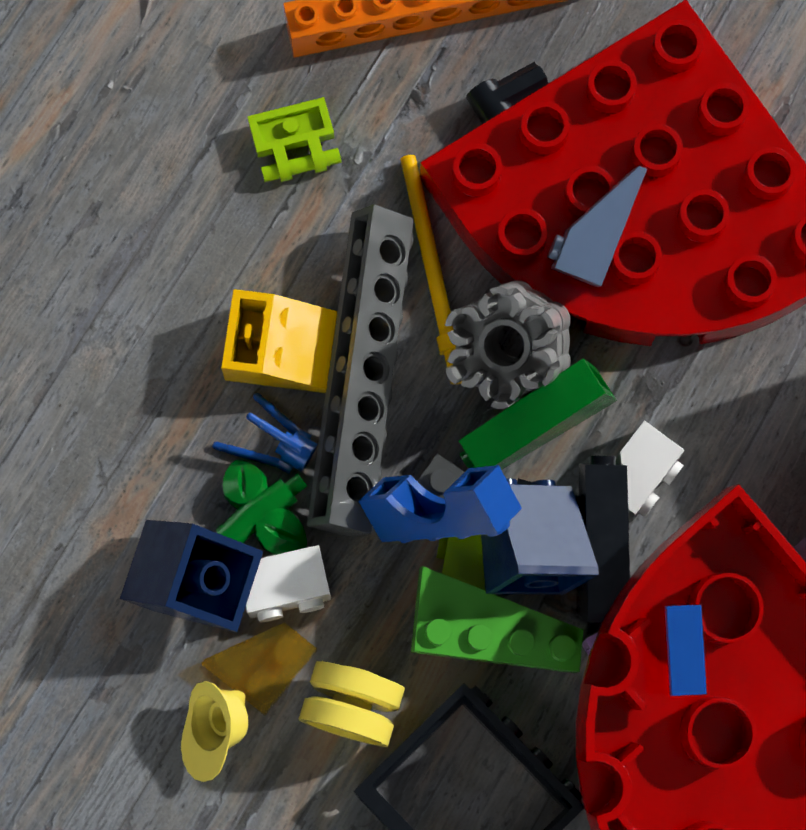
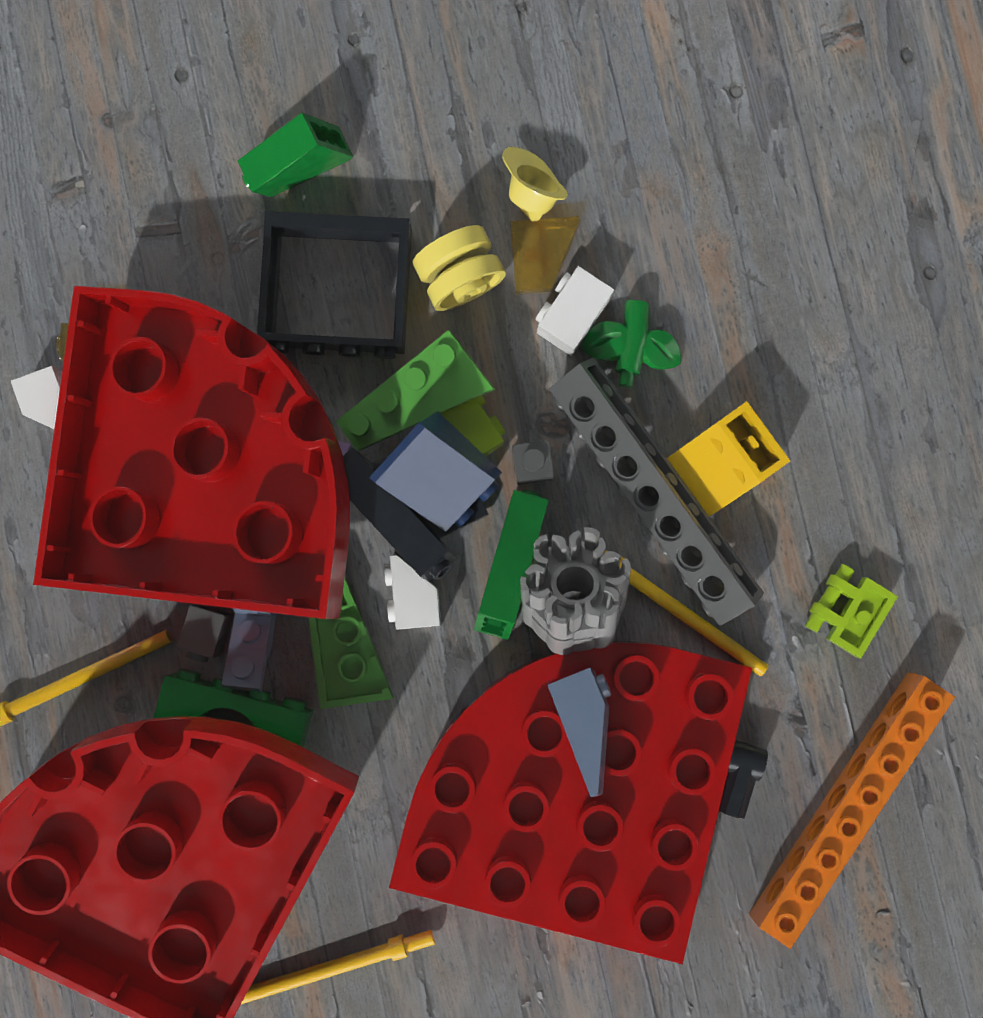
camera: 140 degrees right, 10 degrees up
(191, 574) = (634, 254): dark blue slope -> none
(294, 445) = (649, 402): blue plant -> none
(473, 505) = (493, 443): blue arch -> none
(685, 650) = (263, 472): blue piece -> none
(752, 456) = (346, 658): none -> bright green wing

